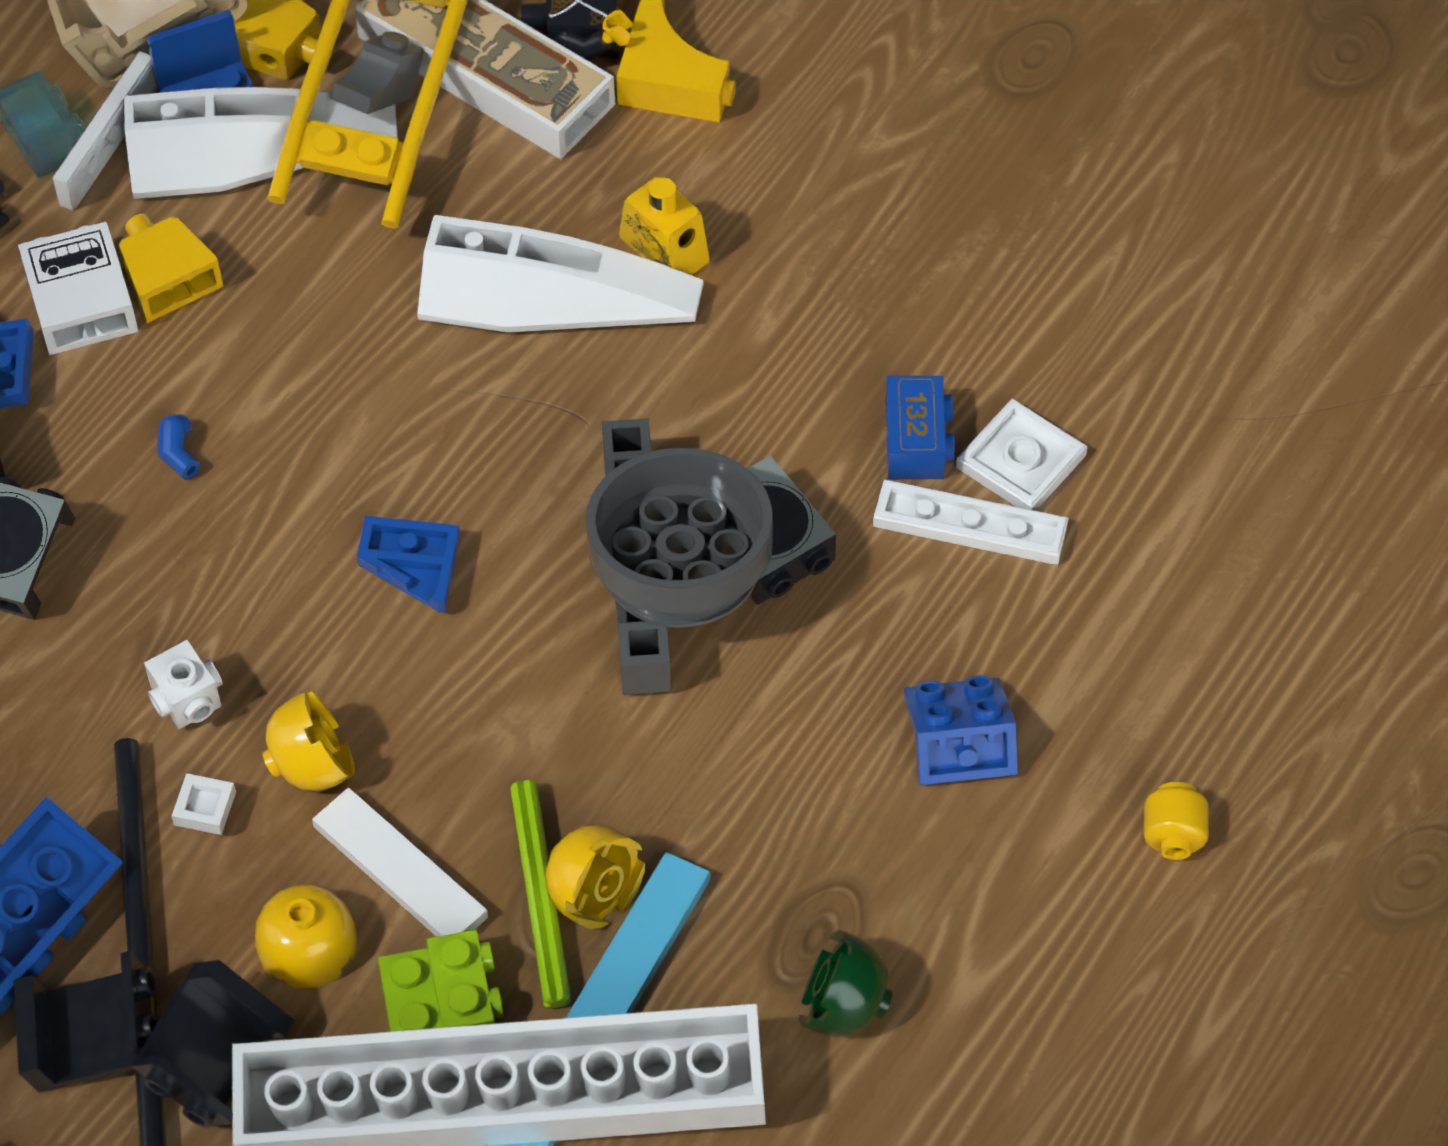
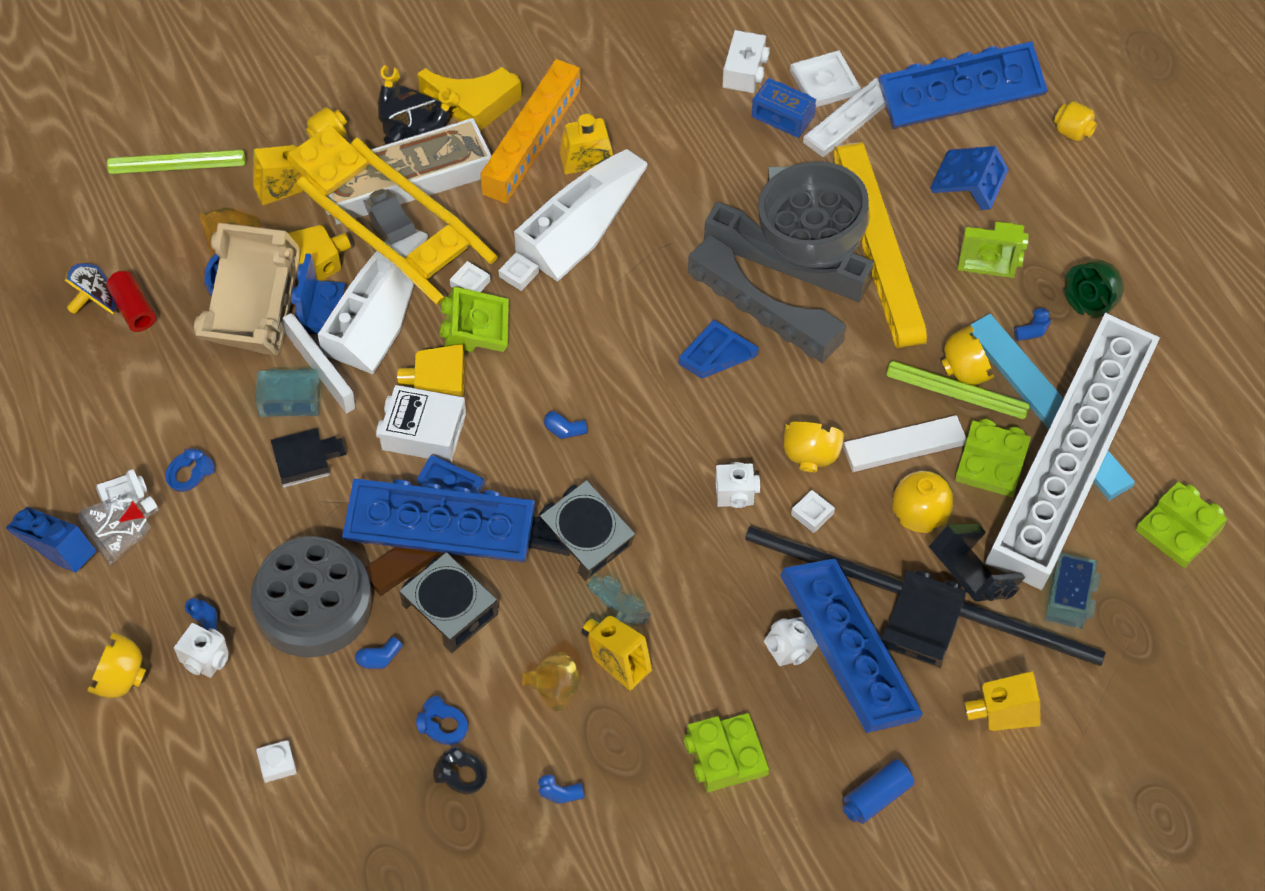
camera: 60 degrees left, 0 degrees up
(279, 258) = (475, 320): none -> lime plate
(349, 220) = (470, 278): none -> white plate
(399, 265) = (518, 271): none -> white plate
(558, 492) = (808, 329): none -> dark grey arch
(633, 153) = (530, 131): none -> light orange brick
(730, 948) = (1036, 328): none -> blue arm
(739, 667) = (882, 247): none -> yellow beam
(816, 813) = (993, 251): none -> lime plate
(969, 338) = (744, 61): none -> white brick
(1131, 632) = (962, 84): none -> blue plate

